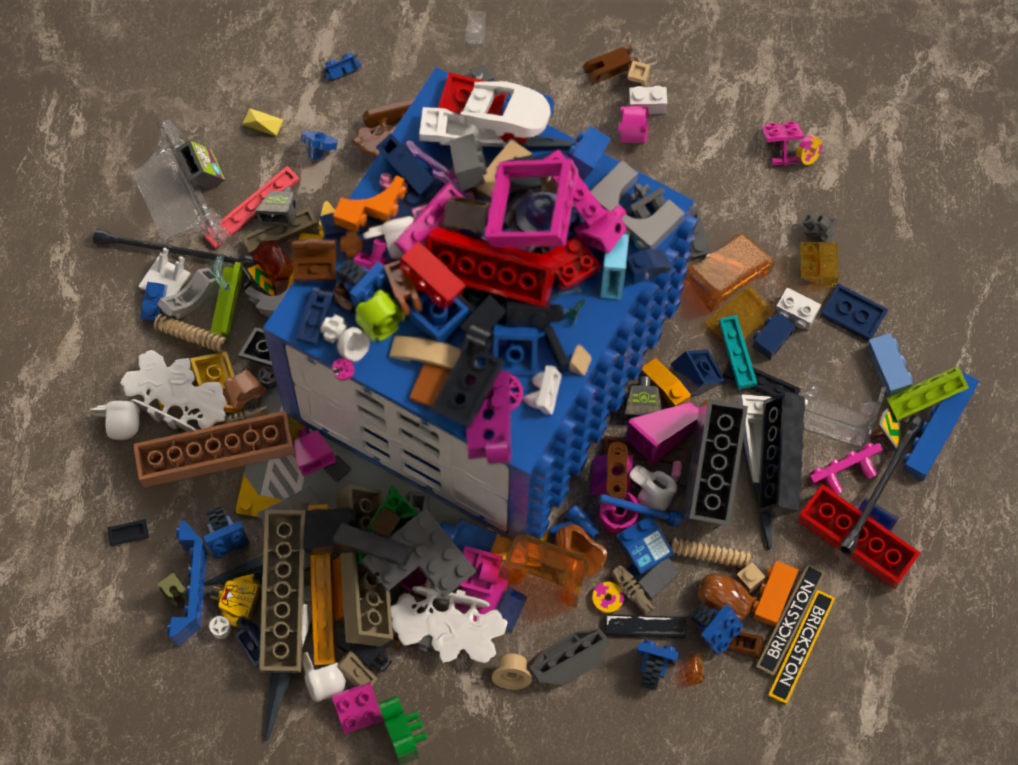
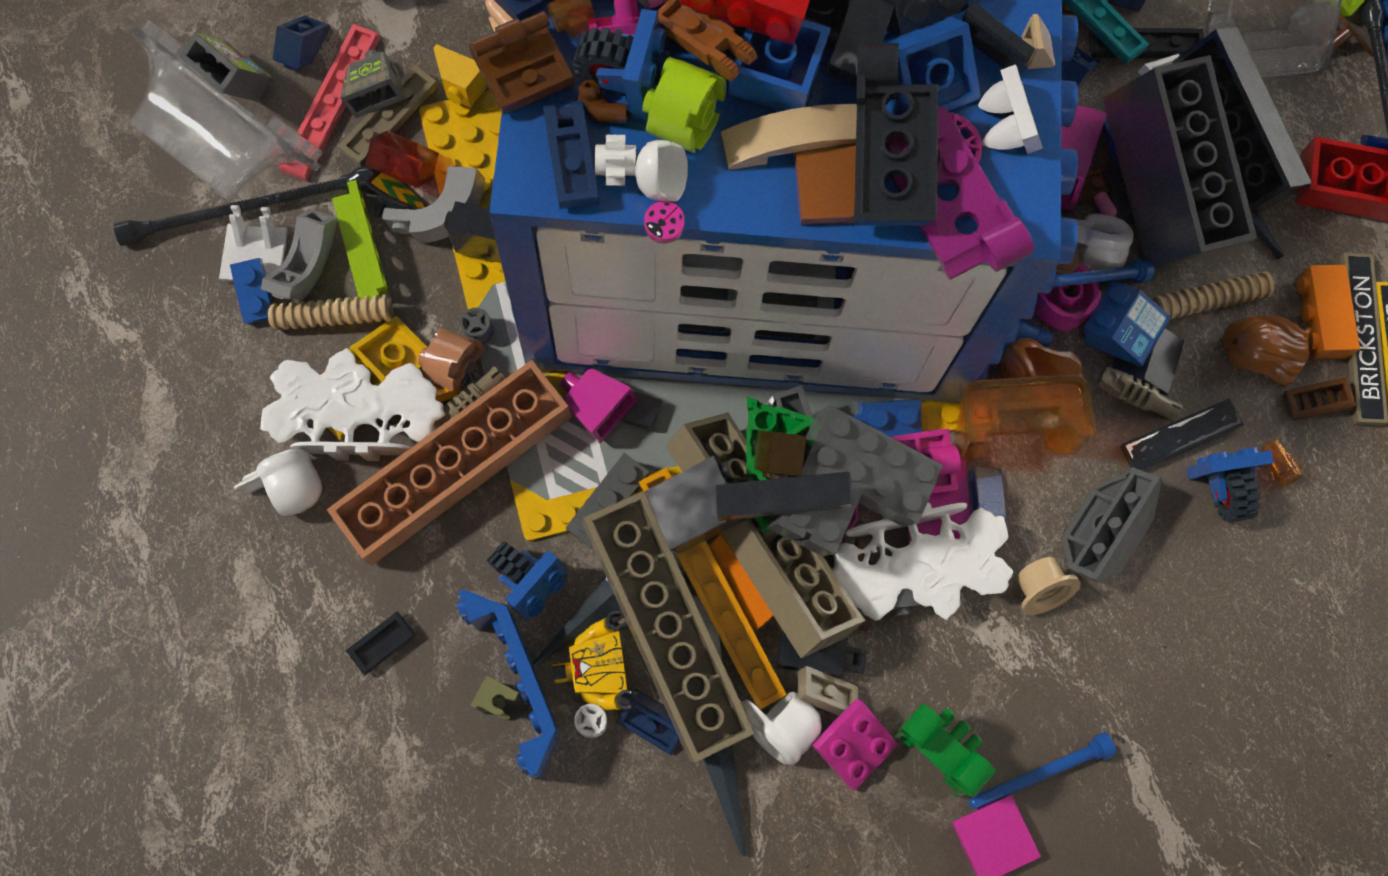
camera: 30 degrees left, 5 degrees up
(217, 273) = (329, 211): clear light blue piece -> none
(250, 164) = (299, 42): none -> dark blue slope
(256, 348) = (450, 285): black slope -> none
(612, 590) = (1123, 418): yellow piece -> none
(717, 627) = (1283, 390): blue plate -> none
(750, 577) = (1287, 302): tan brick -> none
(861, 458) = (1333, 84): dark pink plate -> none

